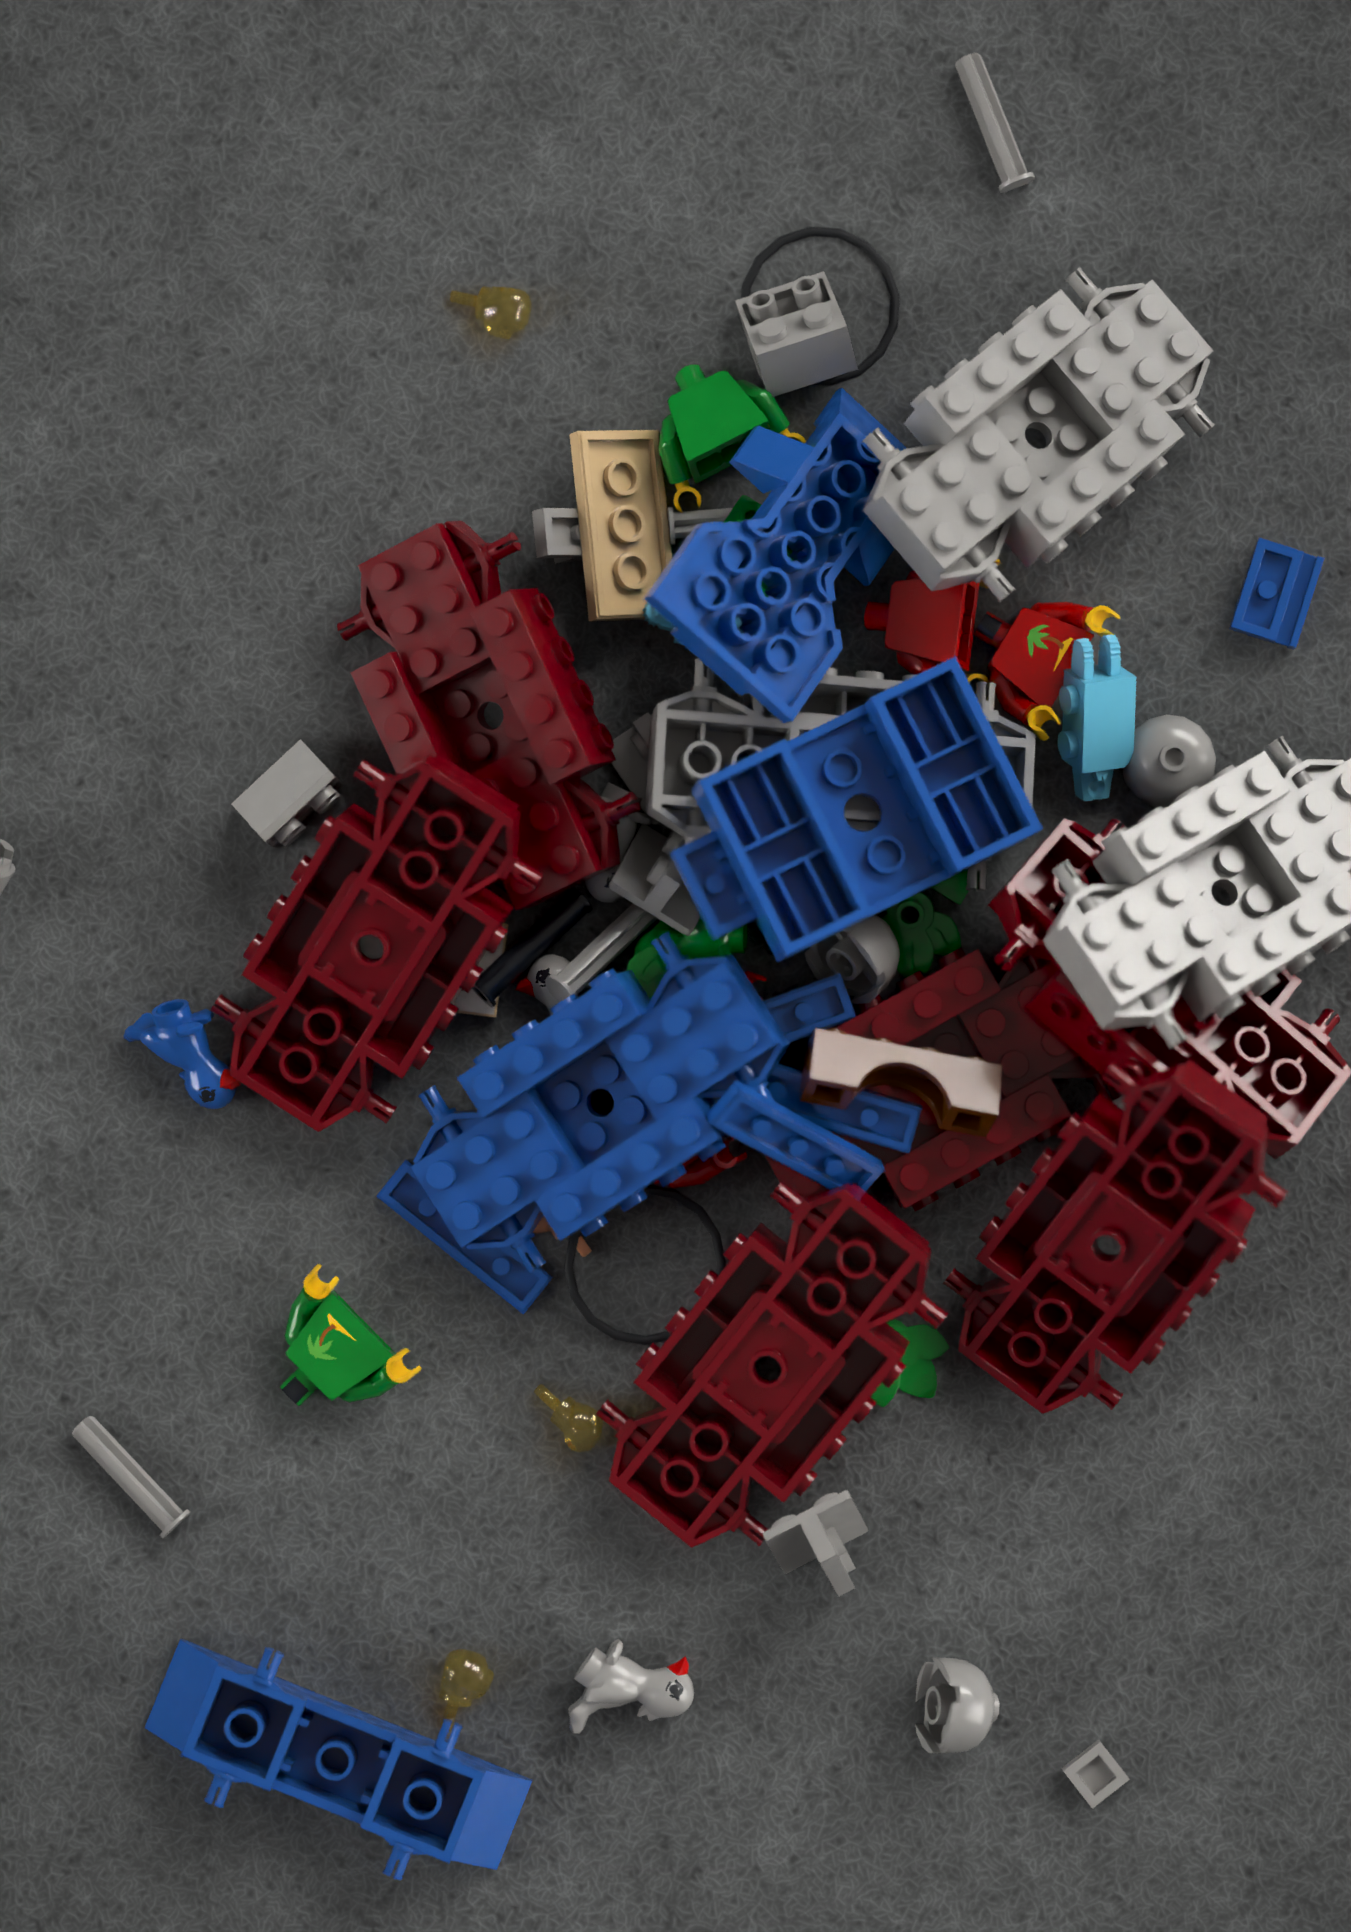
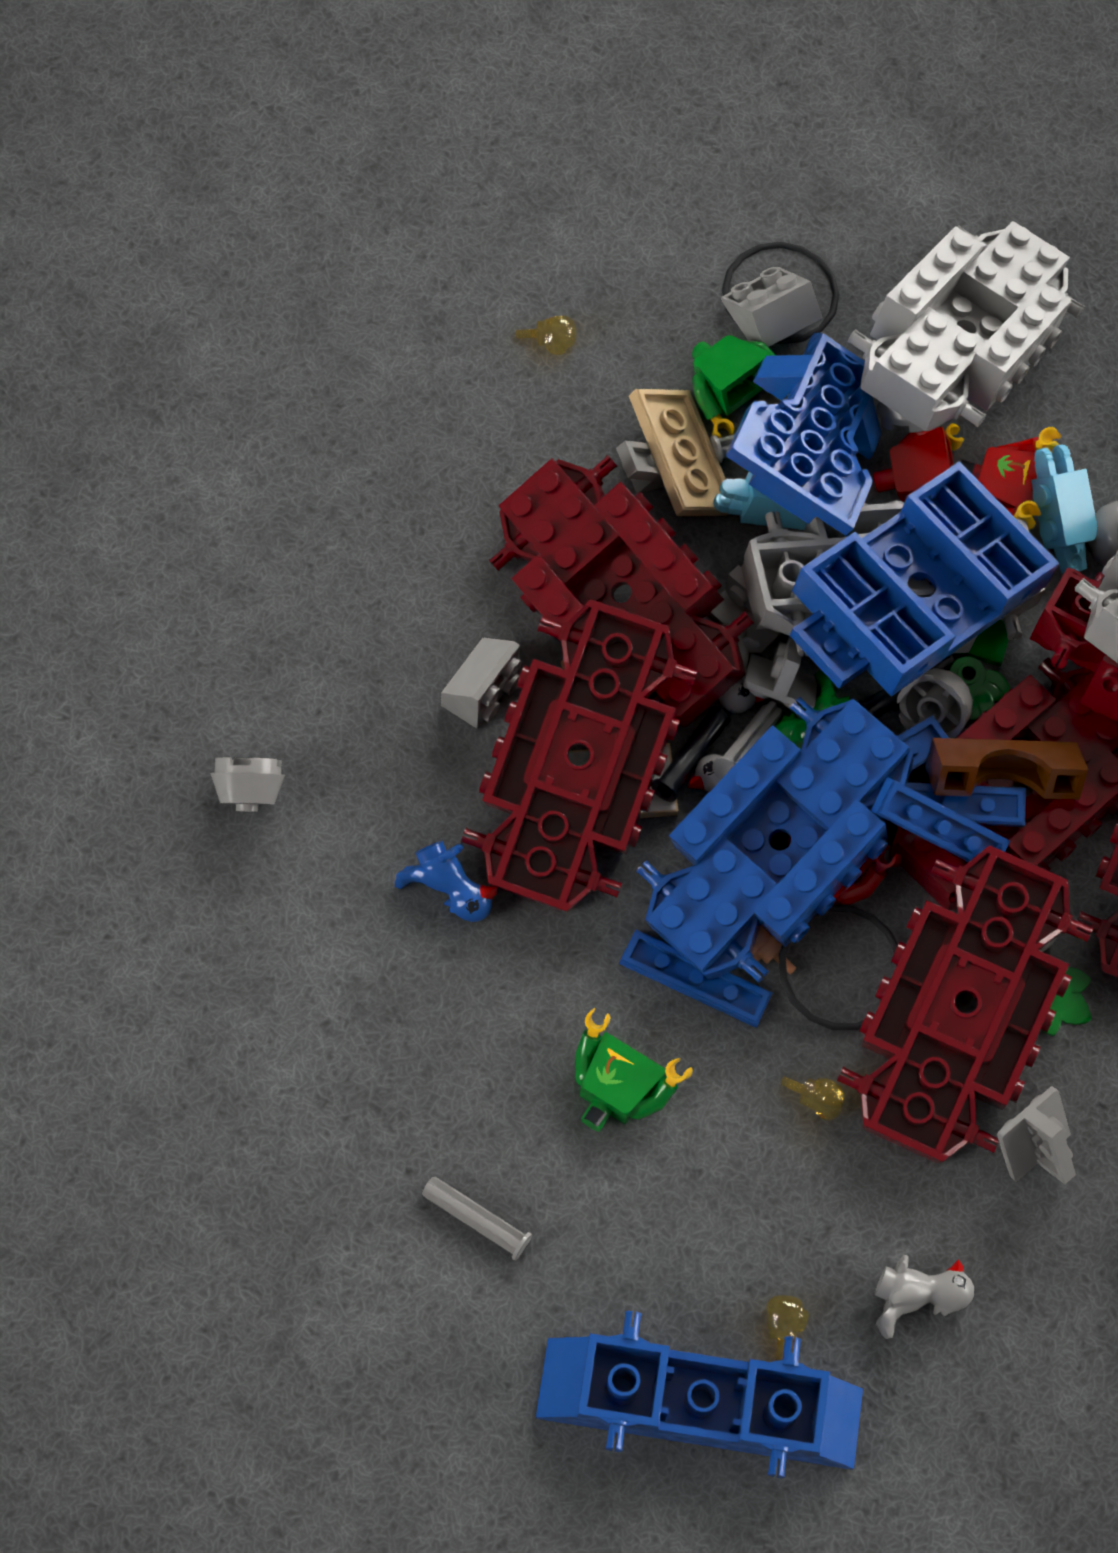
camera: 20 degrees left, 20 degrees down
(992, 123) = (869, 156): light grey axle -> none

